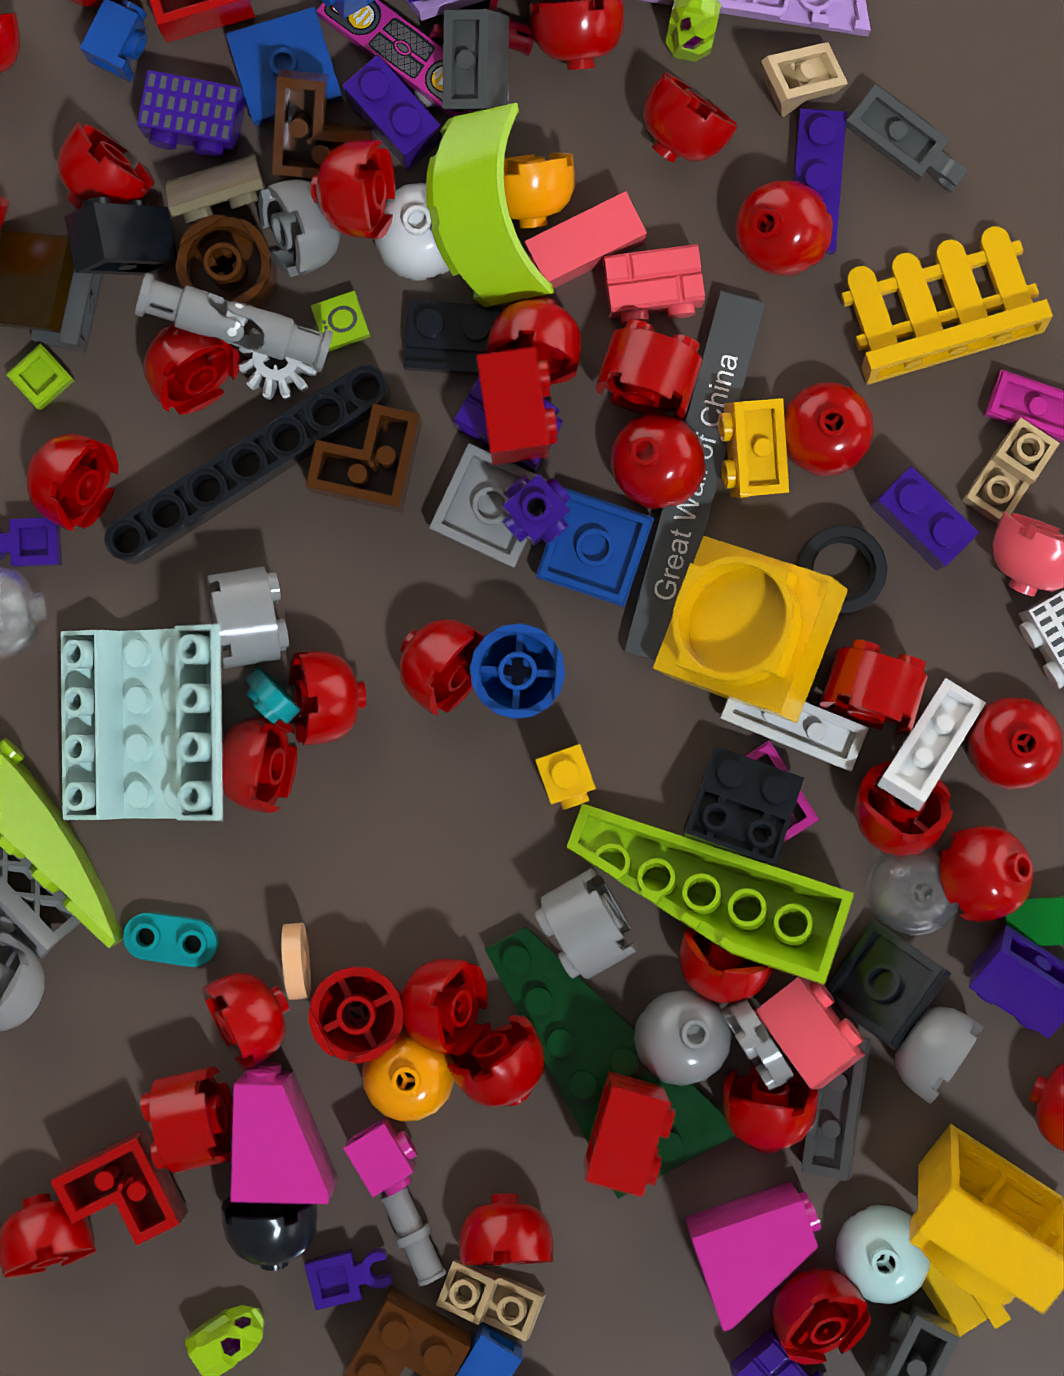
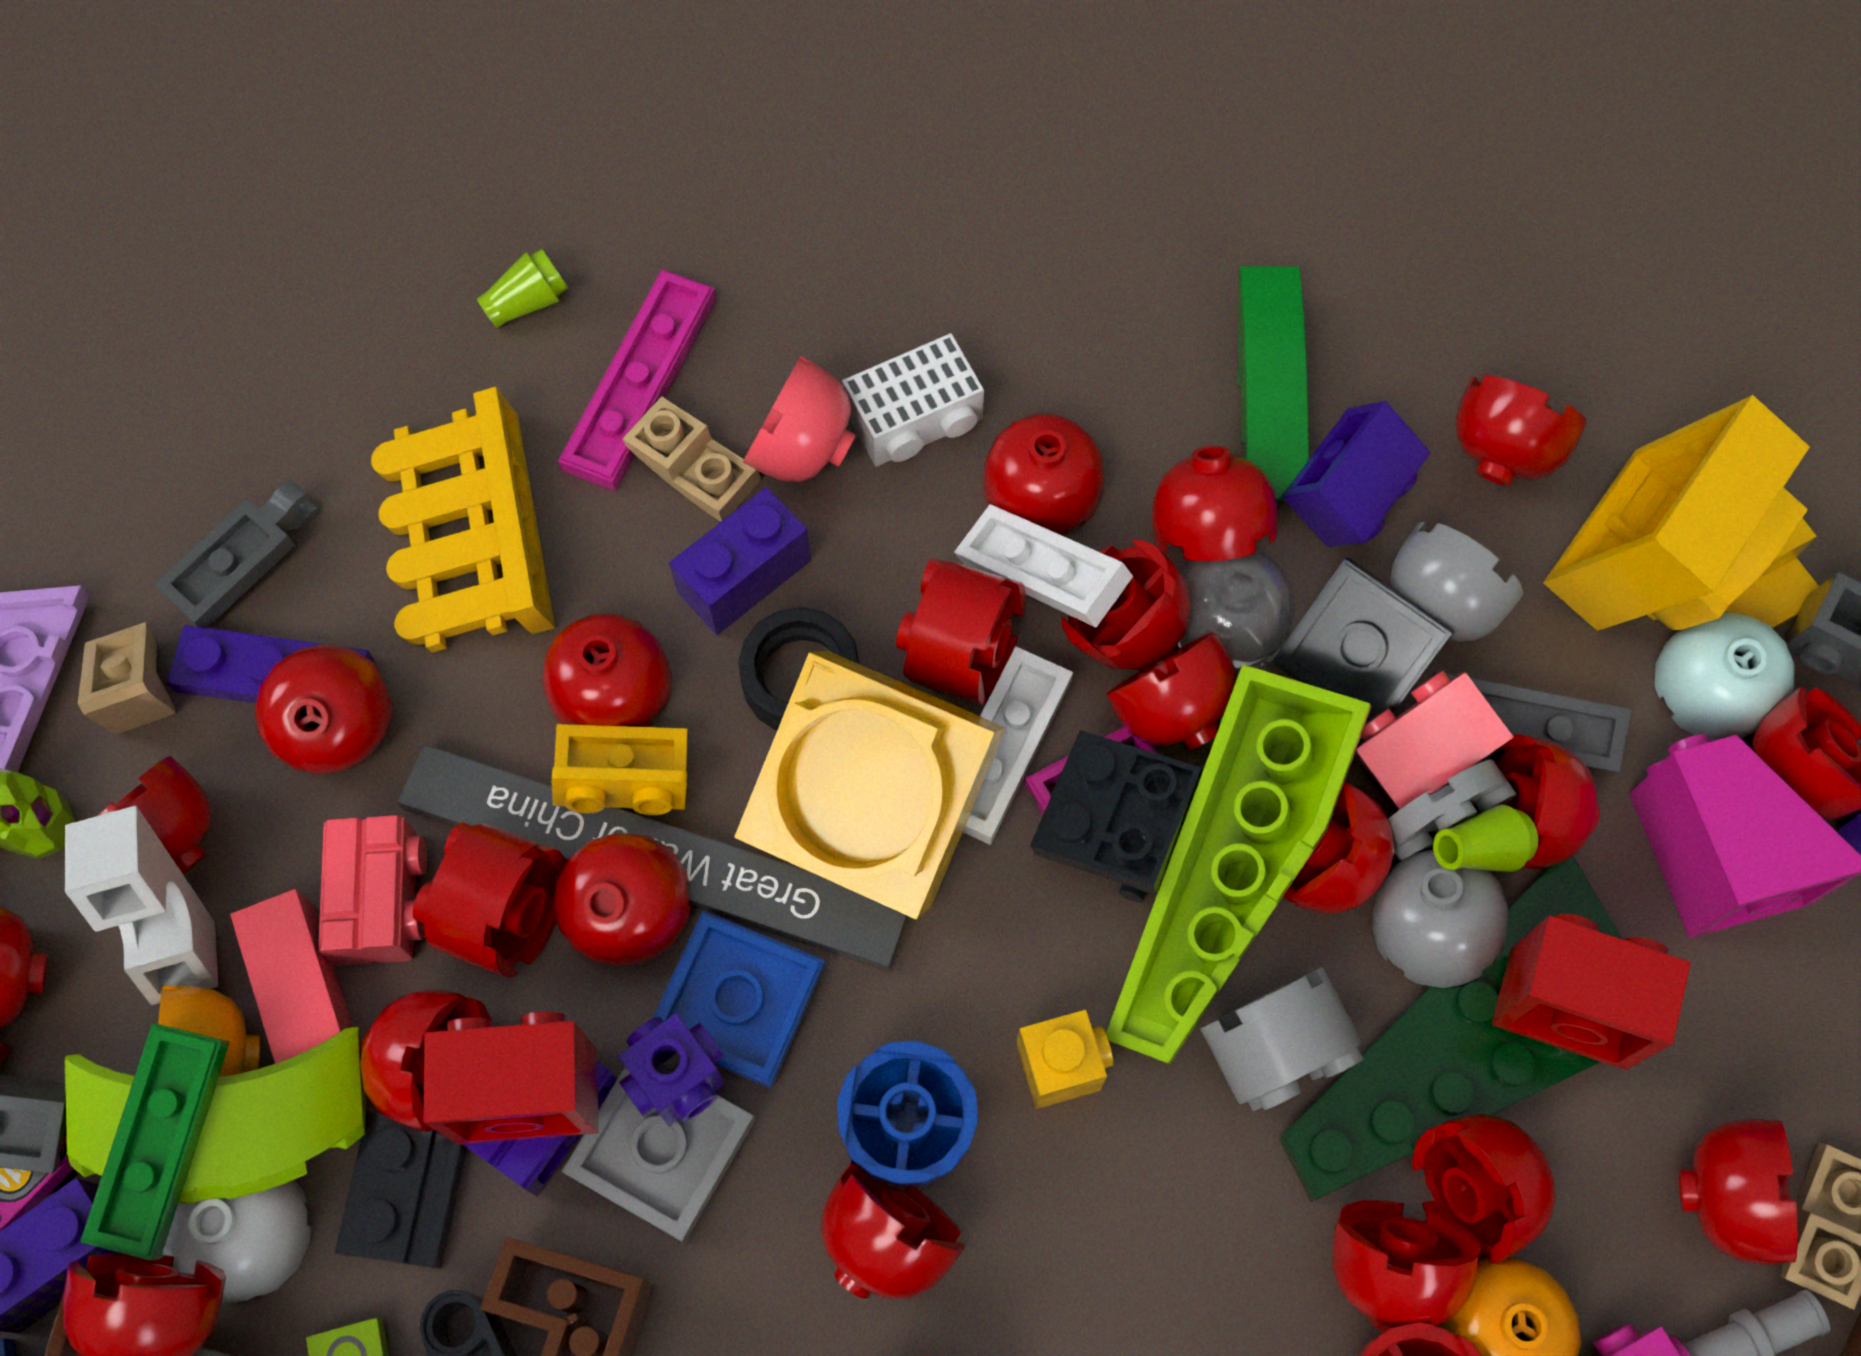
camera: 85 degrees left, 20 degrees down
(462, 177) = (155, 1142): none -> green tile
(629, 130) = (128, 880): none -> white arch
(731, 1069) = (1489, 841): none -> lime cone
(836, 849) = (1178, 695): none -> red cylinder

